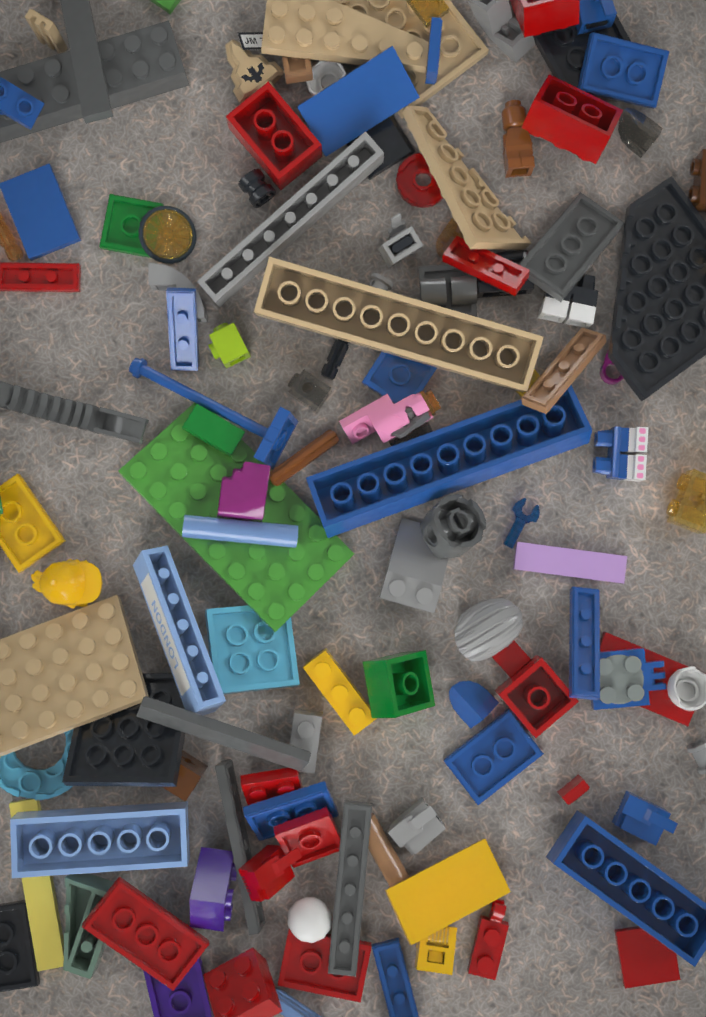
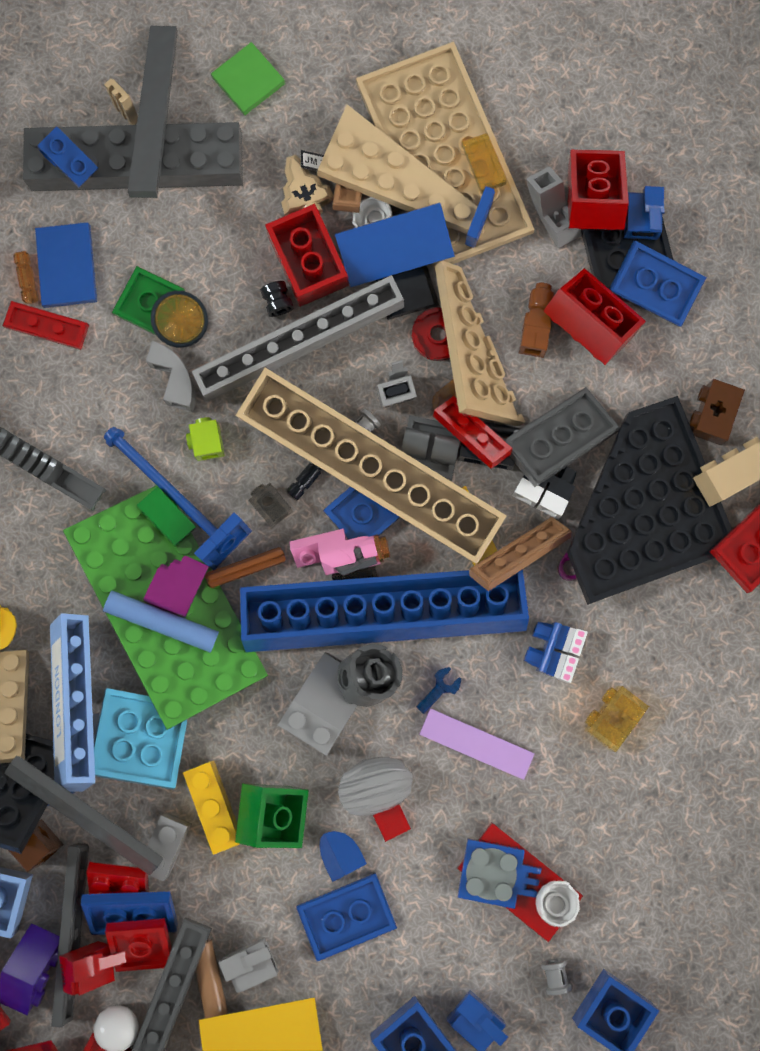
camera: 15 degrees right, 5 degrees down
(182, 329) = (165, 412): tile -> none
(536, 696) = (404, 867): red brick -> none
(573, 789) = (416, 973): red tile -> none
(584, 643) = (466, 828): blue tile -> none
(637, 131) = (656, 343): clear smoke brick -> none

